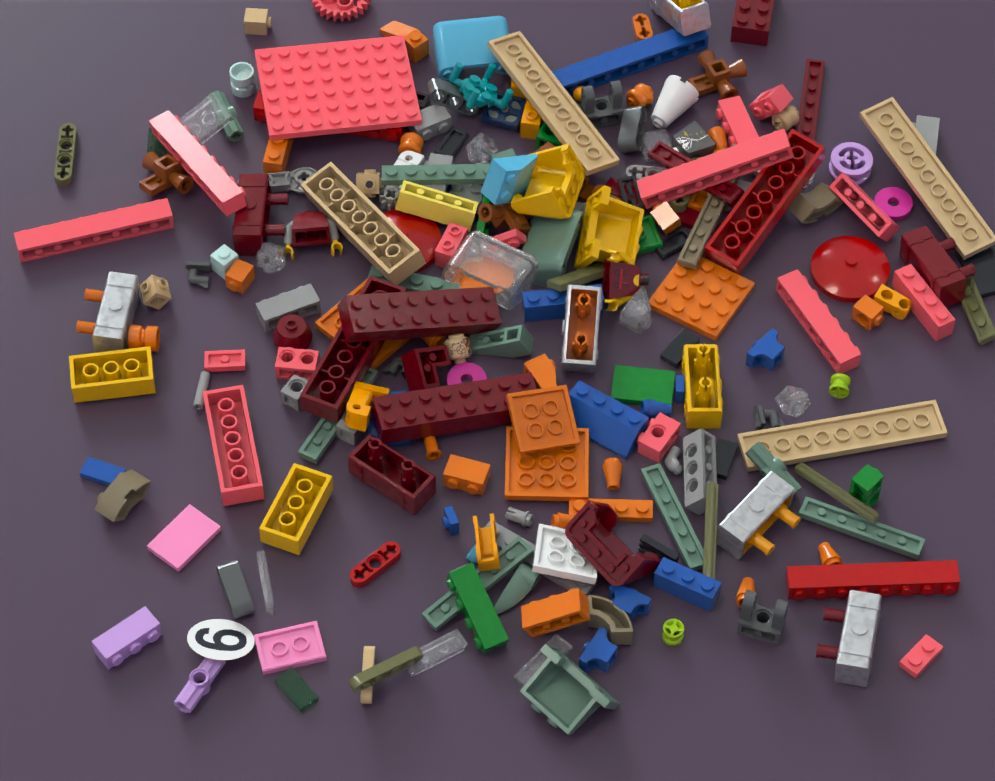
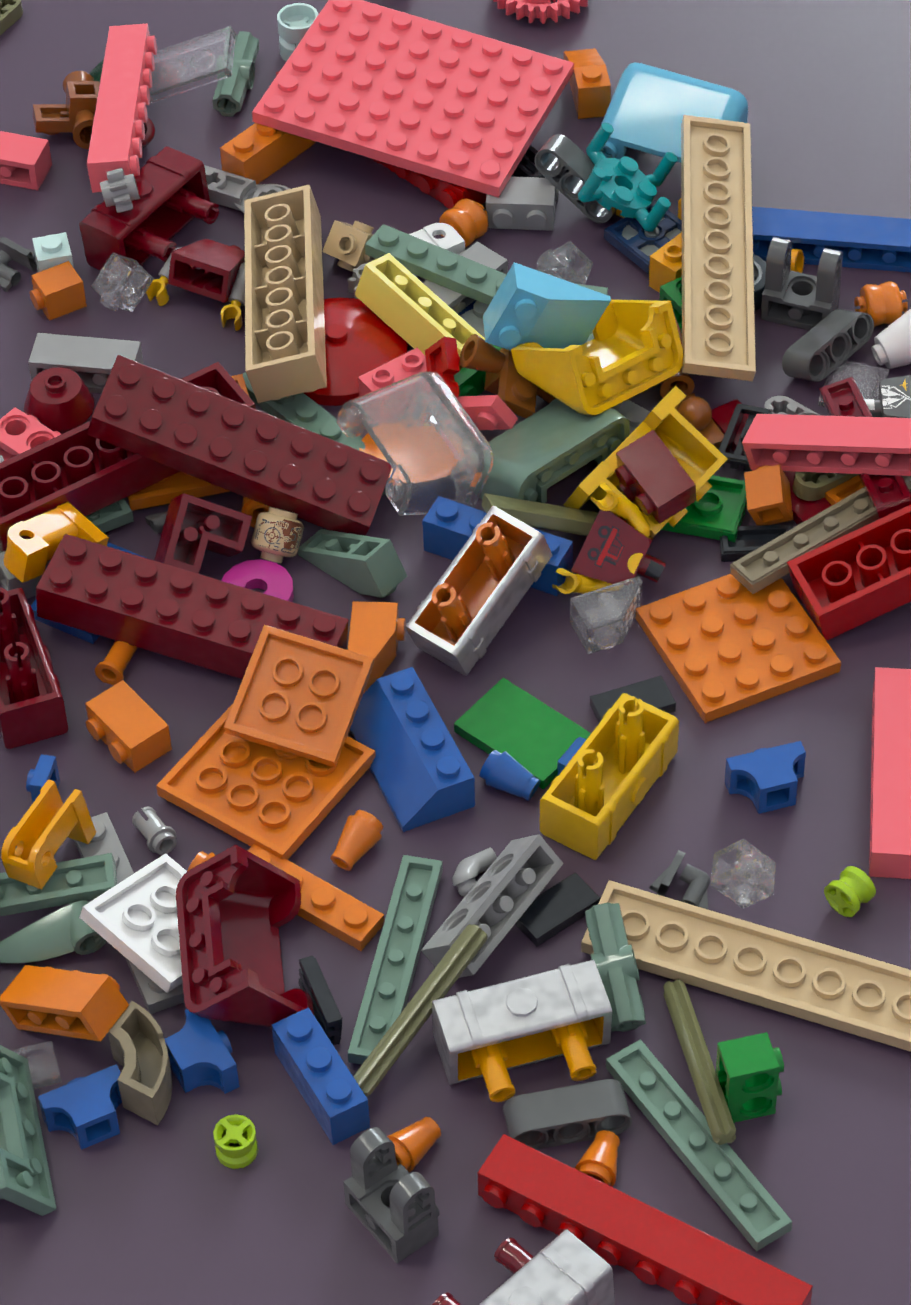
camera: 35 degrees right, 5 degrees down
(247, 209) = (119, 190): none -> light grey gear
(452, 142) = (529, 248): black tile -> none
(473, 222) = (445, 360): none -> red plate
(622, 235) = (654, 478): none -> dark red brick
(658, 437) = (476, 821): coral brick -> none
(800, 544) = (567, 1114): none -> dark grey beam

